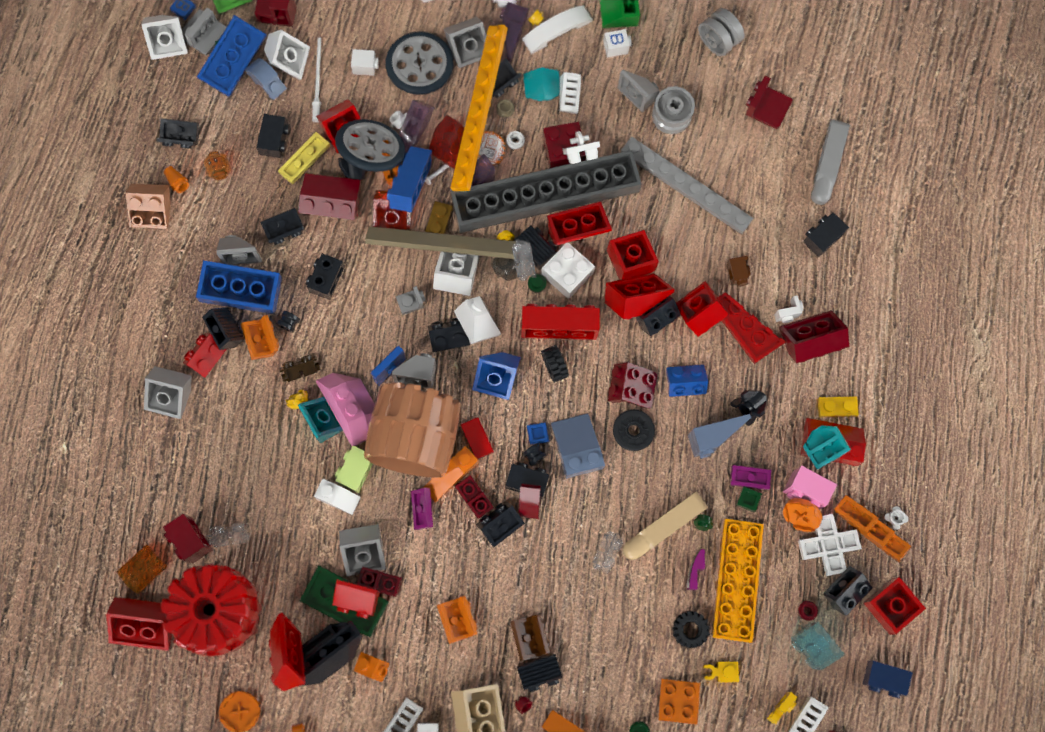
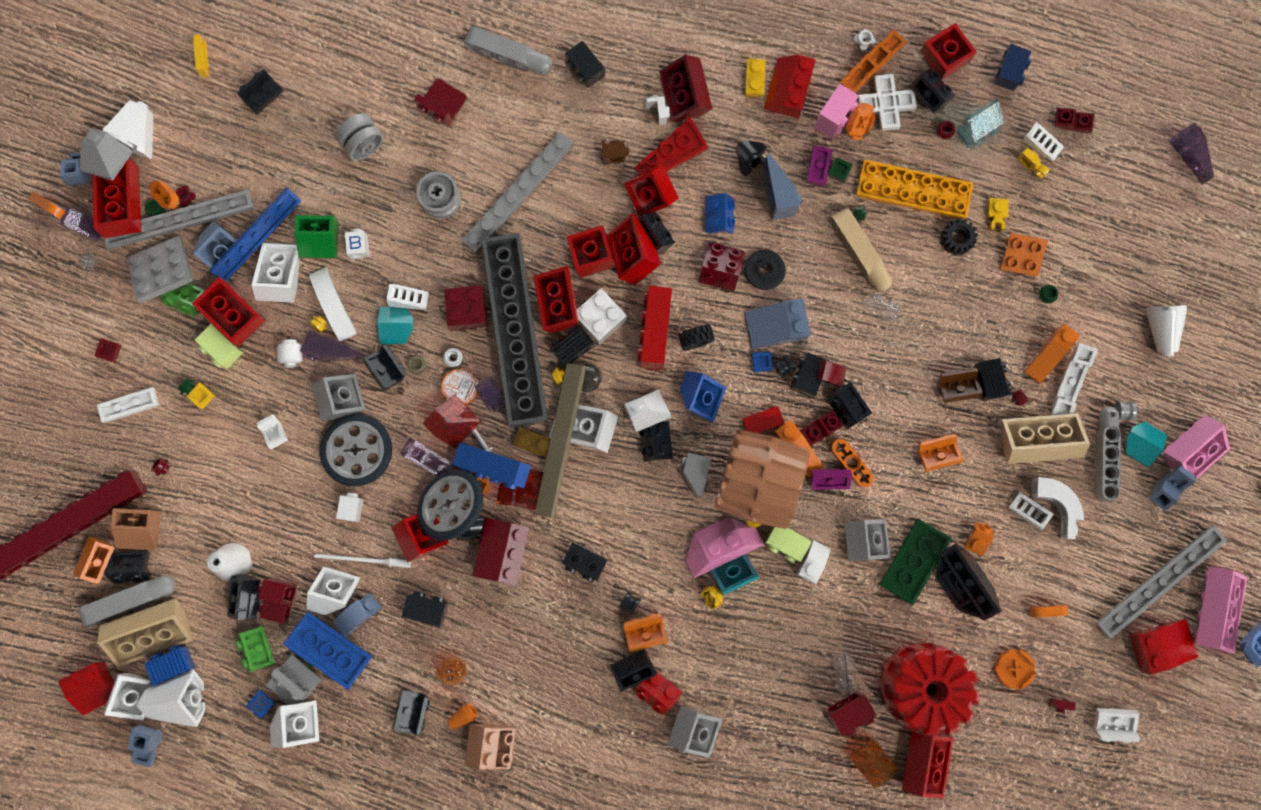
camera: 80 degrees left, 5 degrees up
(236, 251) = (549, 653): light grey slope -> none
(239, 287) = (591, 652): blue brick -> none
(282, 226) = (527, 603): black bracket -> none
(286, 654) = (970, 618): red slope -> none
(292, 369) = (675, 585): dark brown hinge -> none
(304, 158) = (451, 577): light yellow plate -> none
(355, 598) = (918, 547): slope -> none
(379, 581) = (898, 526): dark red slope -> none
(387, 365) = (687, 501): blue plate -> none
(397, 119) = (418, 476): white plate -> none
(411, 301) = (617, 476): light grey bracket -> none
(455, 524) = (847, 448): none -> orange beam
(479, 108) = (419, 388): light orange plate -> none
(523, 252) = (586, 357): clear hinge -> none
(537, 284) = (609, 349): dark green plate -> none
(589, 148) = (474, 288): white hips -> none
(638, 89) = (413, 227): light grey slope -> none
(697, 564) = (899, 224): magenta slope -> none
(825, 445) = (801, 89): teal slope -> none

